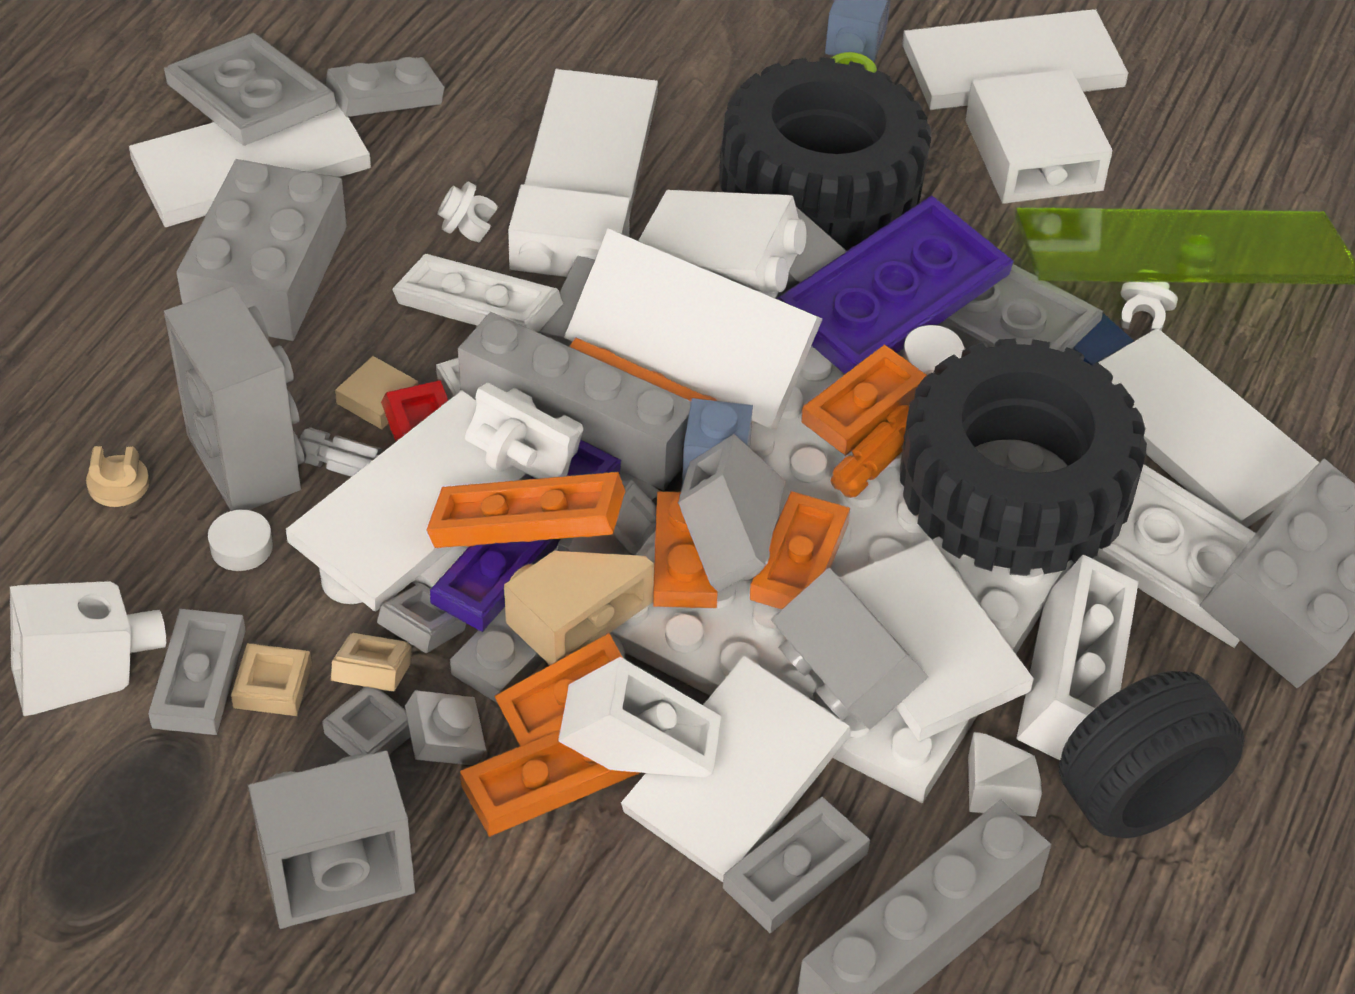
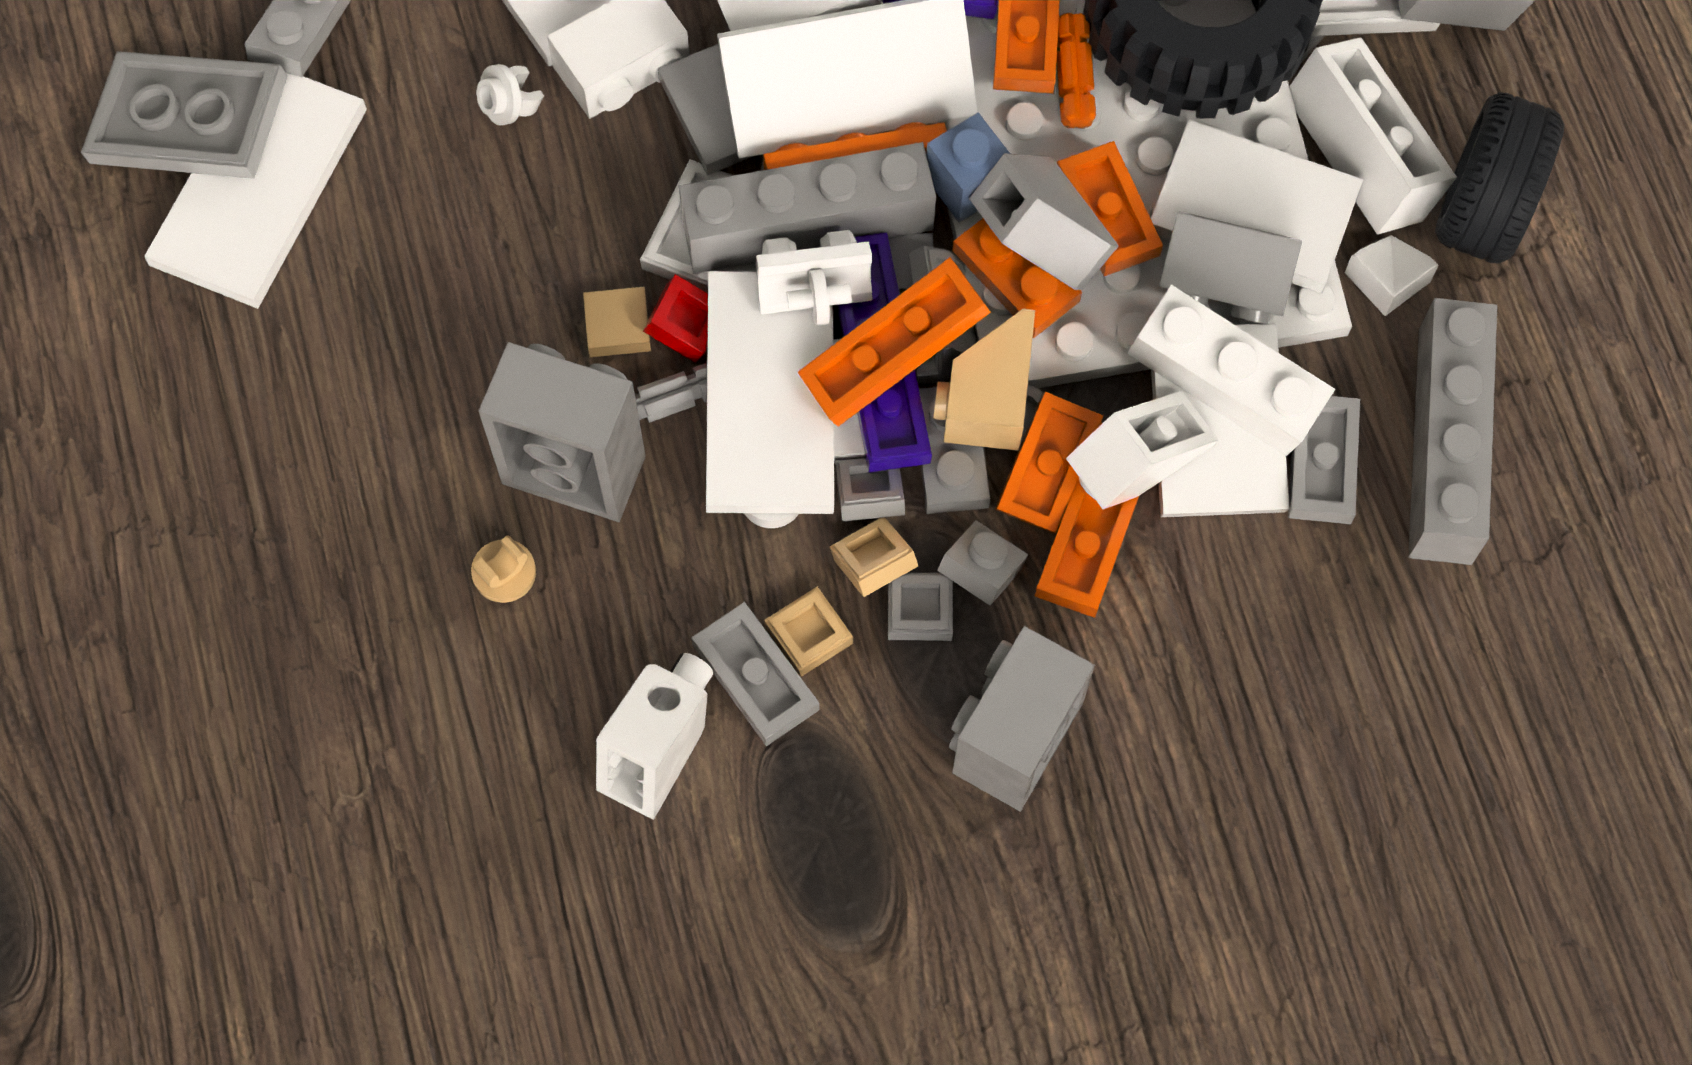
camera: 40 degrees left, 20 degrees up
(240, 540) = (656, 539): white tile -> none
(269, 239) = (388, 265): light grey brick -> none
(474, 292) = (612, 170): white tile -> none
(764, 719) = (1230, 371): none -> white brick

